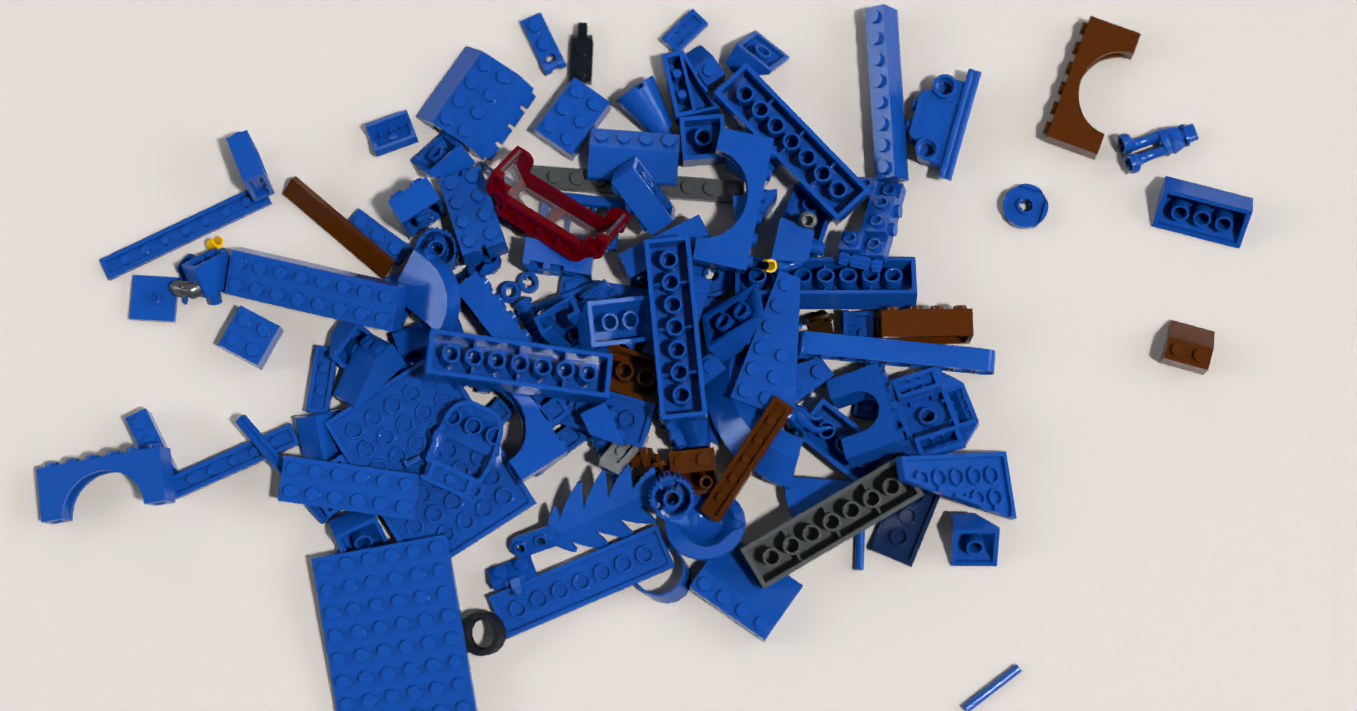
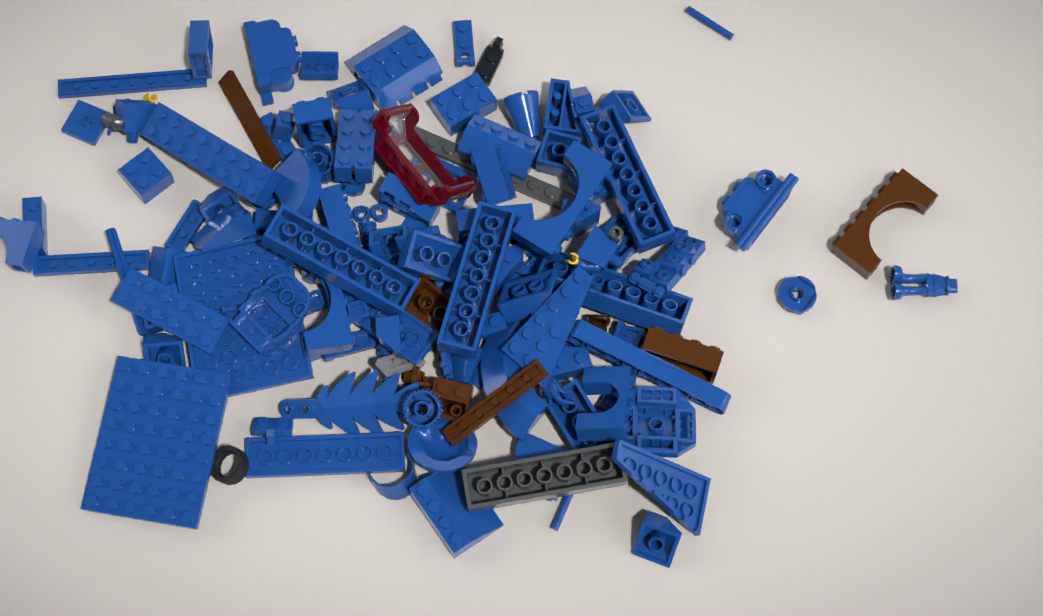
camera: 15 degrees right, 10 degrees down
(333, 141) = (272, 57): none -> blue brick
(382, 223) = (284, 126): none -> blue brick
(685, 31) = (577, 71): blue plate -> none
(886, 94) = (717, 171): blue brick -> none
(903, 531) = (605, 508): dark blue tile -> none
(1188, 347) = (891, 451): reddish brown slope -> none
(1203, 212) = (941, 349): blue slope -> none

